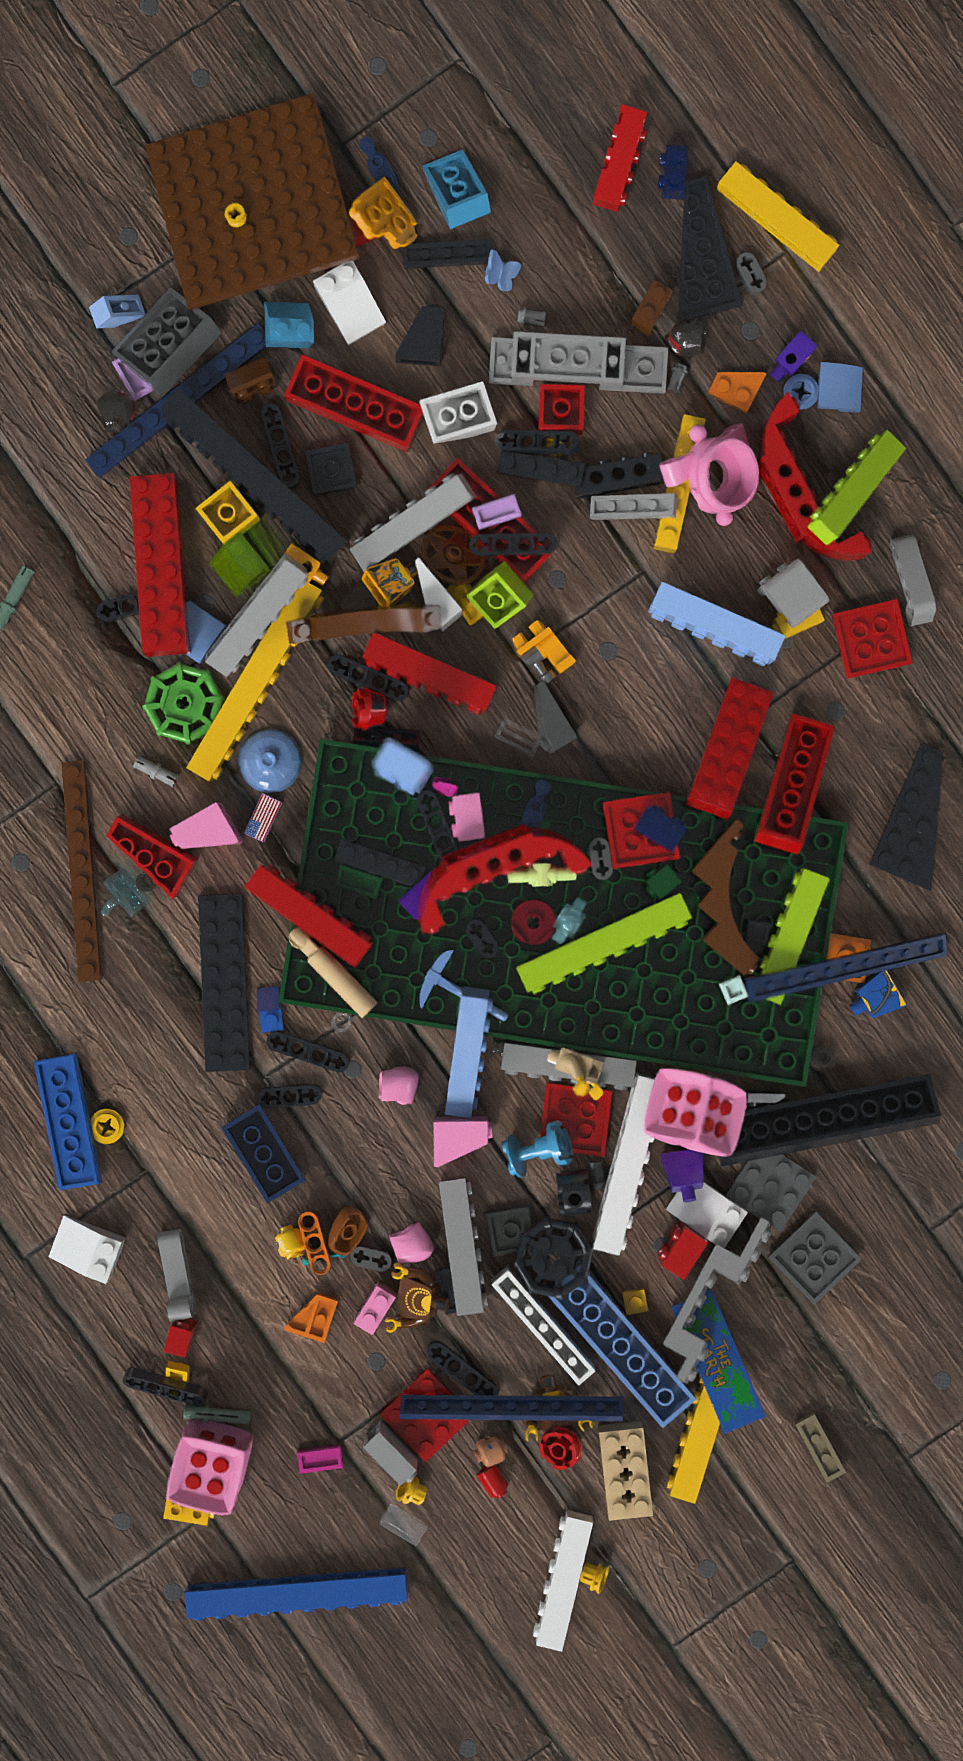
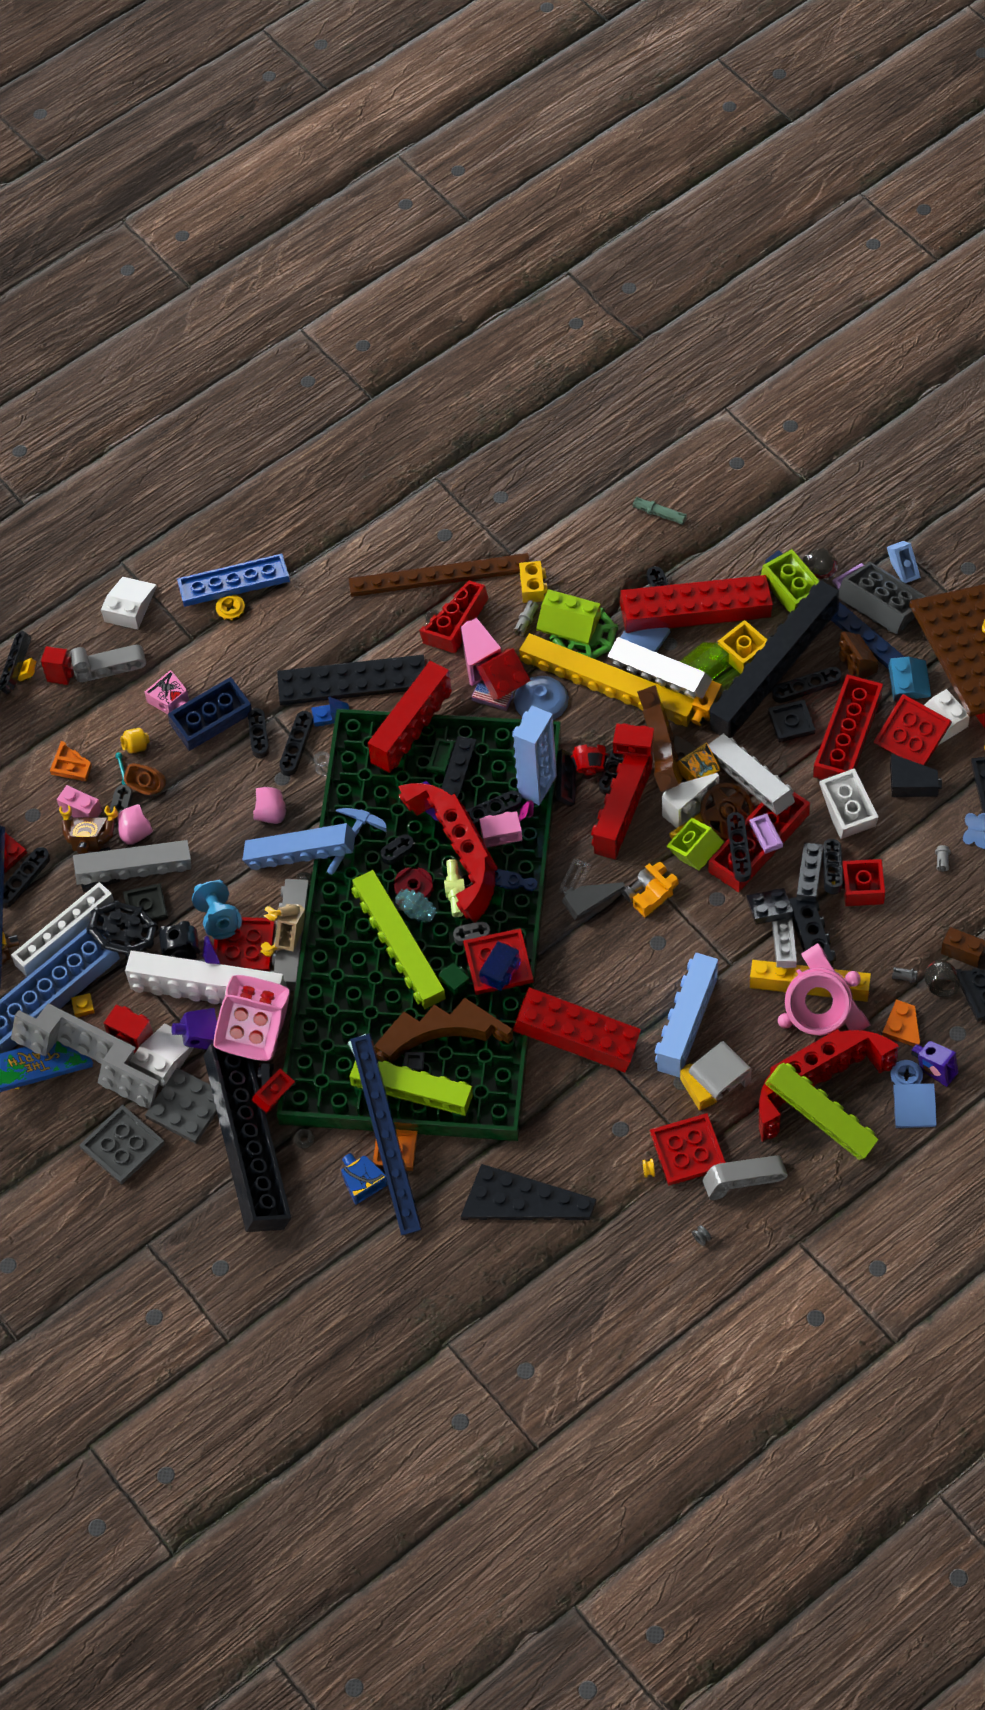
camera: 90 degrees right, 30 degrees down
(105, 764) = (531, 582): none -> yellow brick
(125, 893) = (422, 603): clear light blue plate -> none
(140, 446) = (789, 579): none -> lime slope
(169, 719) = (568, 617): none -> lime slope
(229, 1200) = (167, 693): none -> bright pink torso
(247, 801) = (503, 674): none -> red brick
(312, 1253) = (142, 753): orange beam -> none
(333, 972) = (356, 747): tan piece -> none
(365, 328) = (912, 731): none -> red plate
(367, 652) = (633, 740): none -> red brick
(459, 1136) = (226, 850): bright pink slope -> none
(578, 360) = (906, 897): light grey bracket -> none
(579, 519) = (769, 906): none -> black plate
(599, 1156) = (209, 952): none -> dark purple slope
(787, 1092) = (272, 1090): none -> red plate
(794, 784) = (548, 1080): red brick -> none
(891, 683) = (648, 1168): none -> yellow bush

